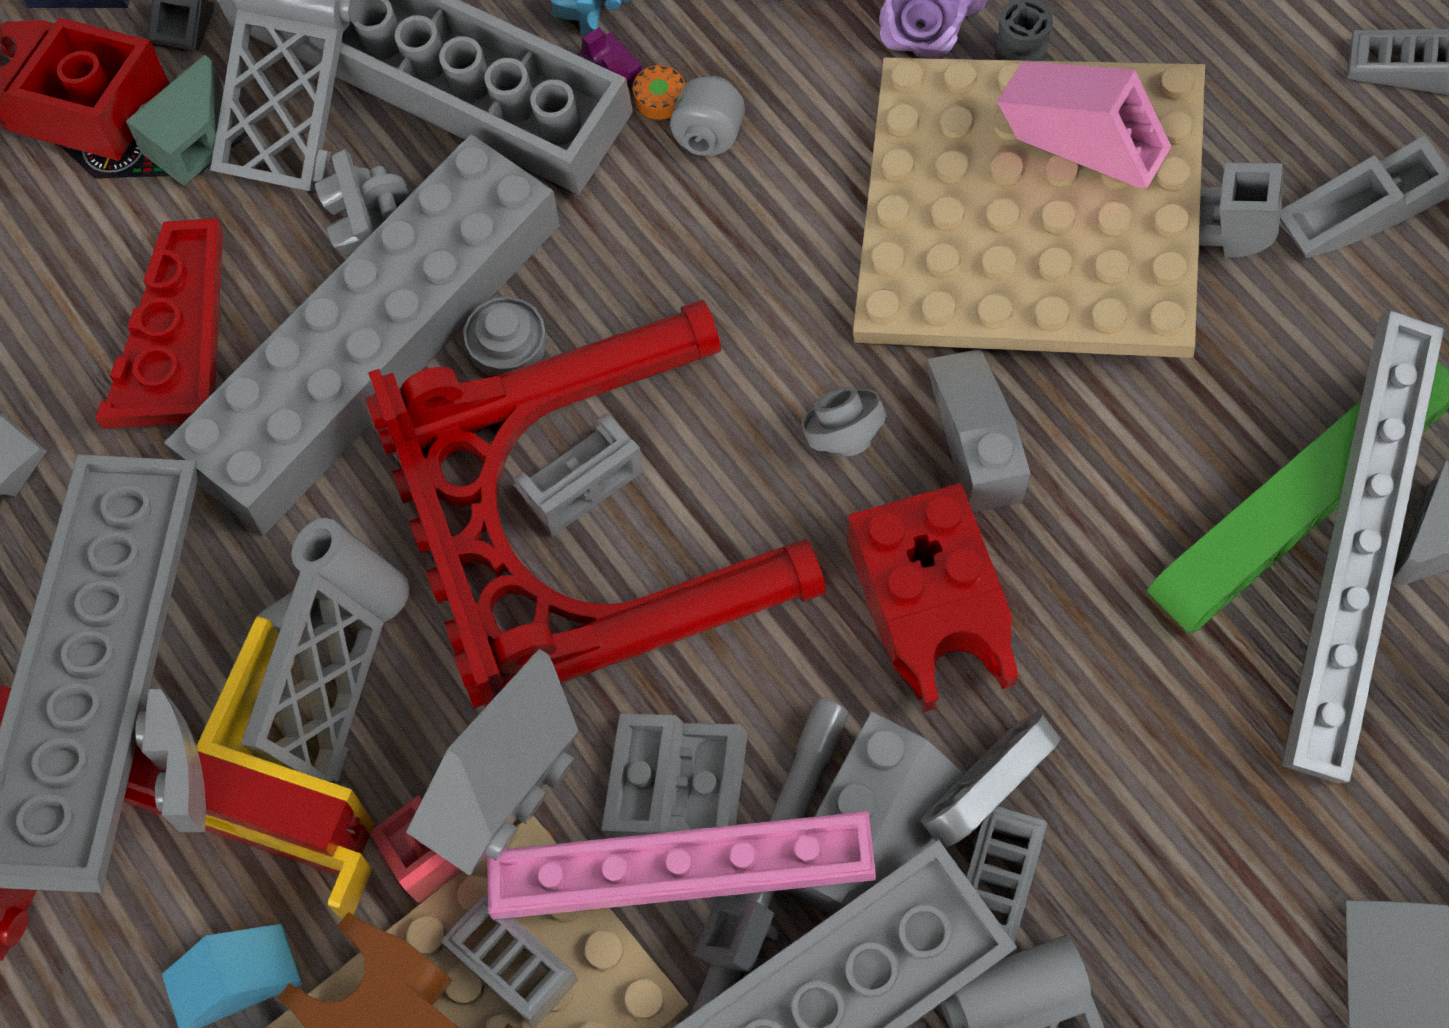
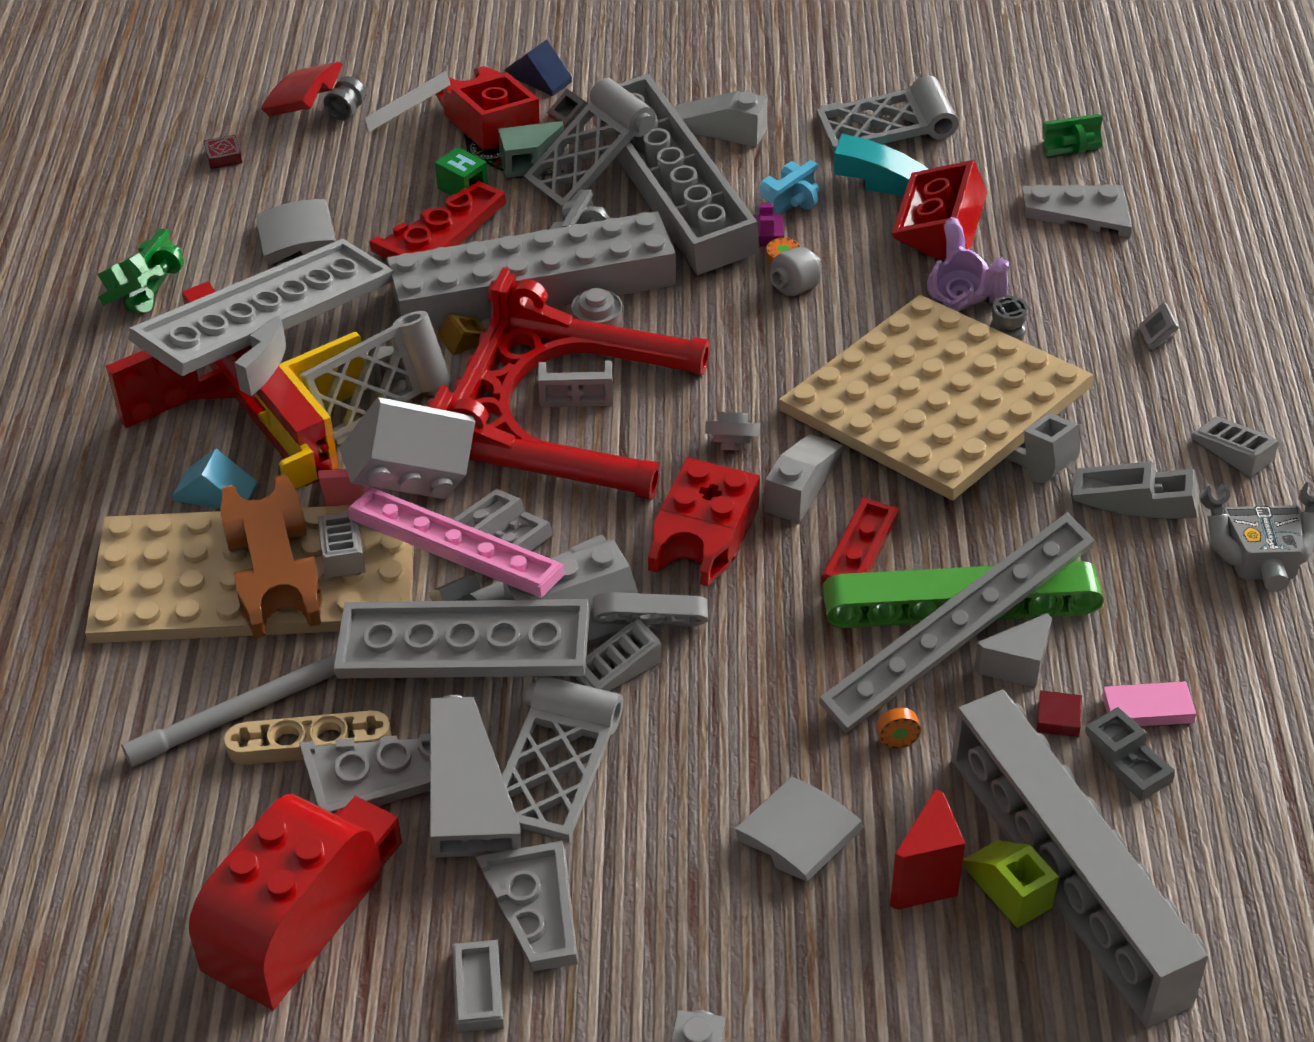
camera: 35 degrees right, 20 degrees down
(123, 222) = (459, 170): none -> green brick
(351, 486) = (460, 333): none -> pearl gold slope
(1087, 117) = (988, 355): bright pink slope -> none
(1127, 492) = (862, 539): none -> red tile
(1404, 739) = (898, 728): none -> orange tile

